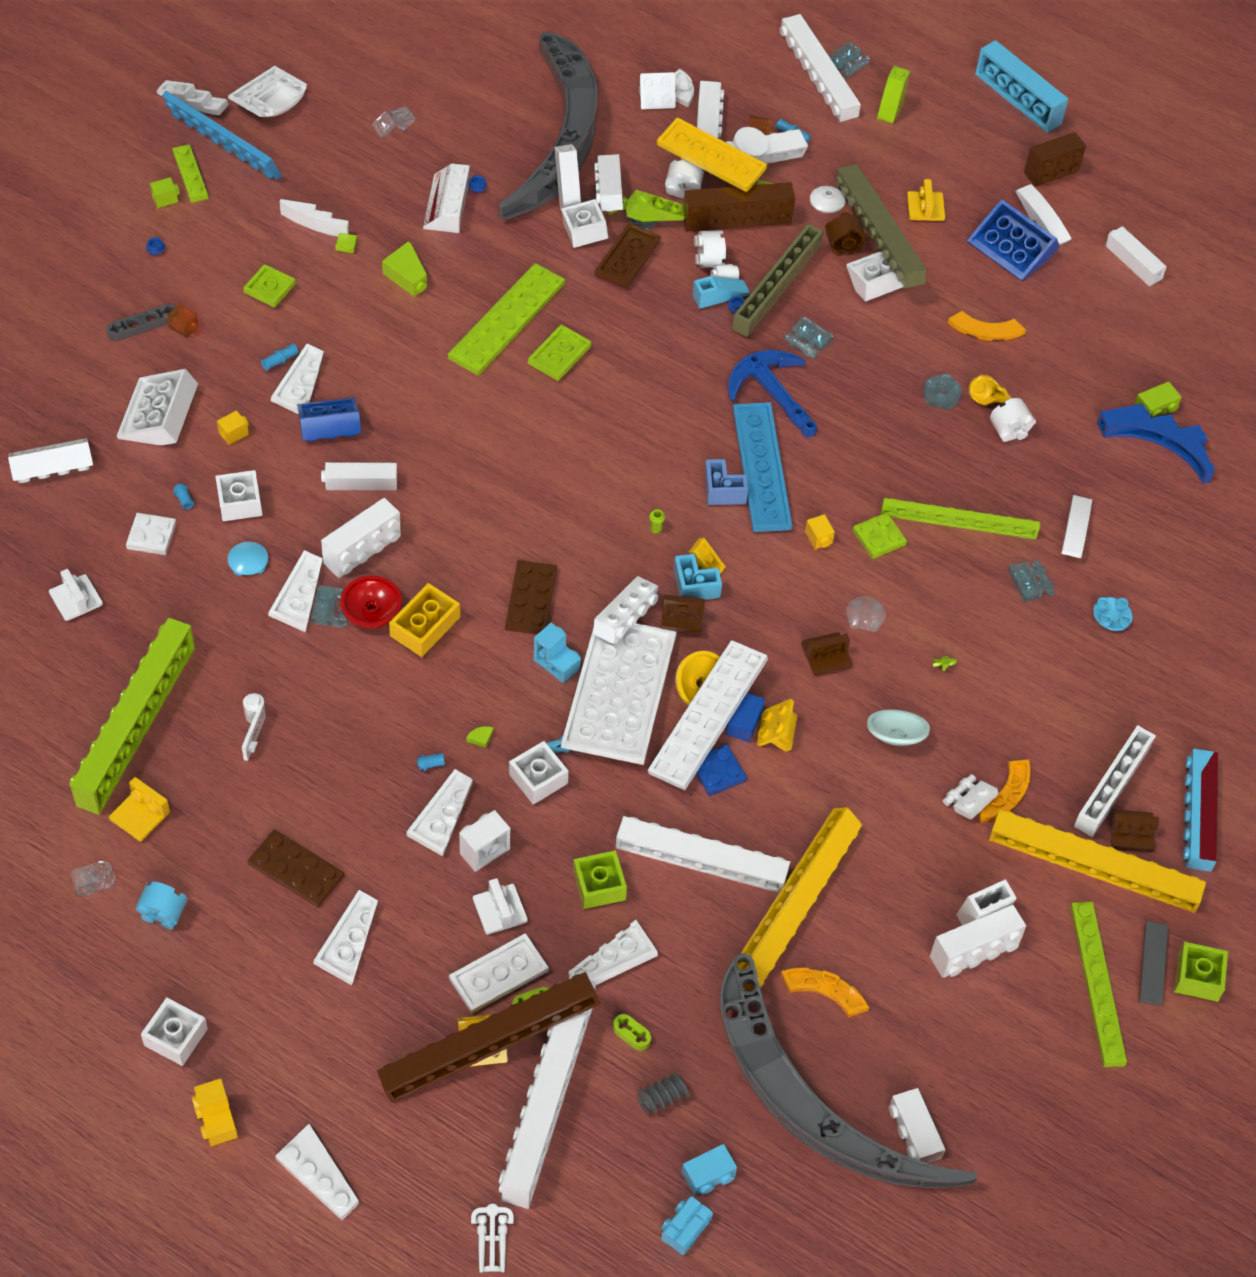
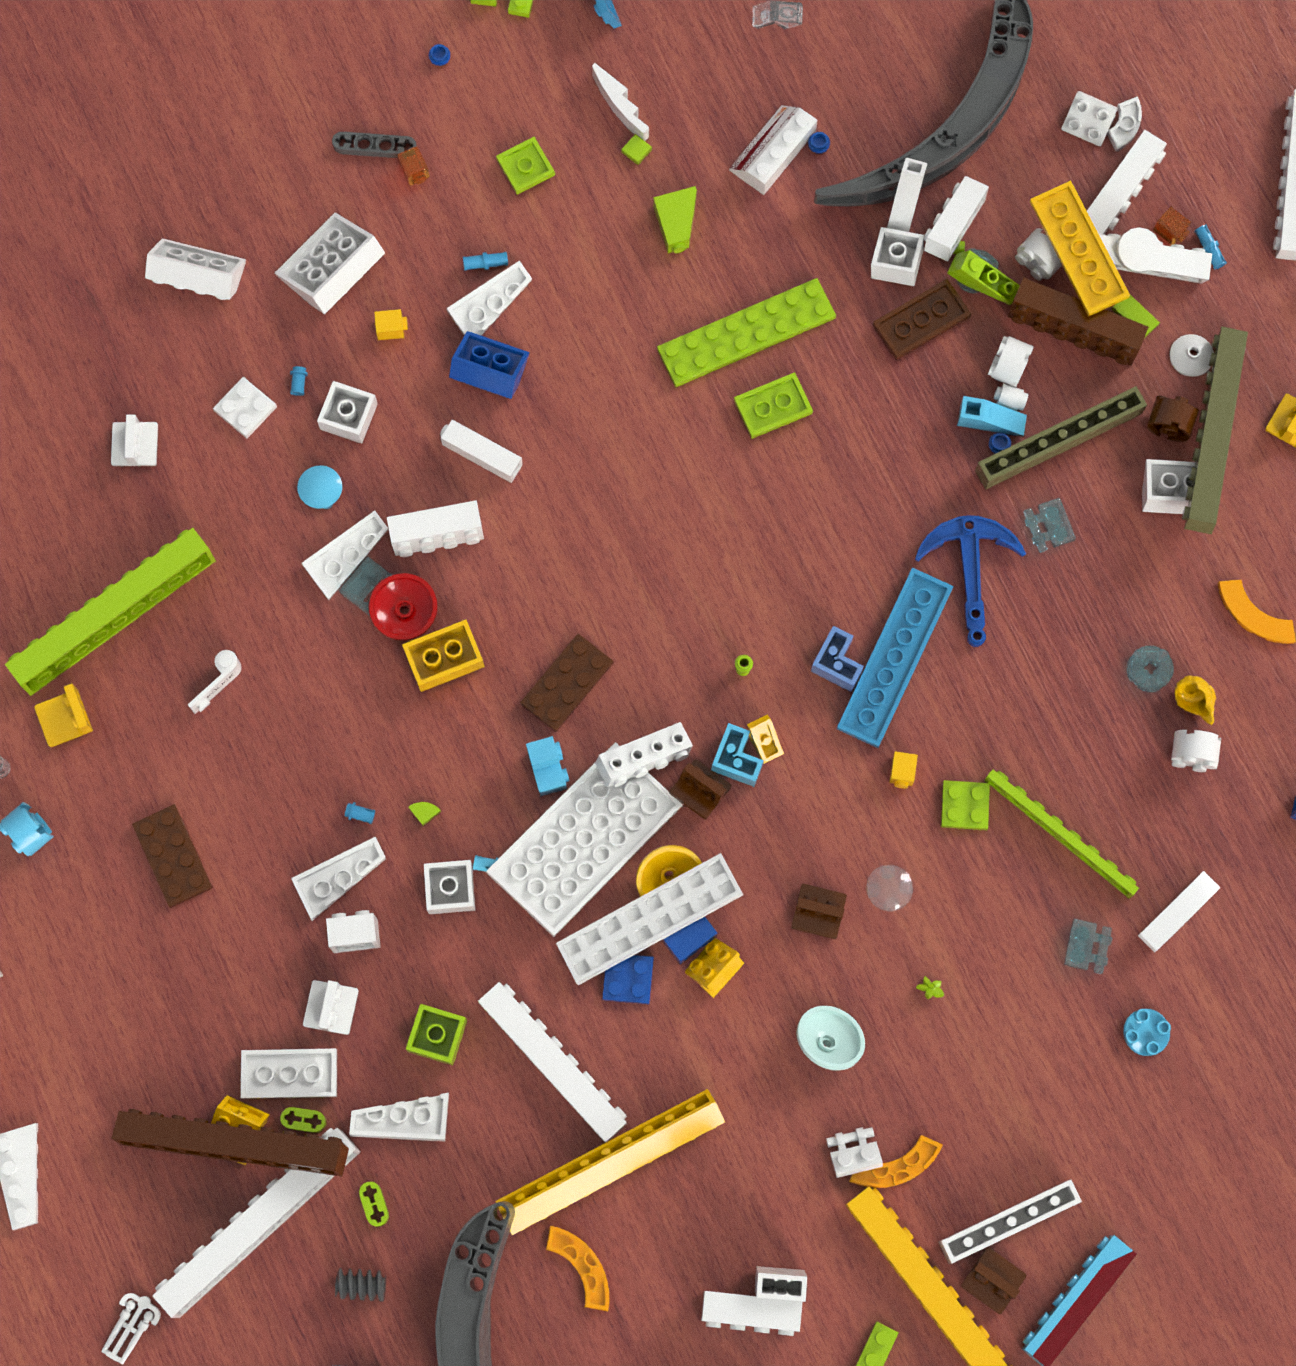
camera: 35 degrees right, 20 degrees up
(346, 942) = (172, 960): white wing -> none

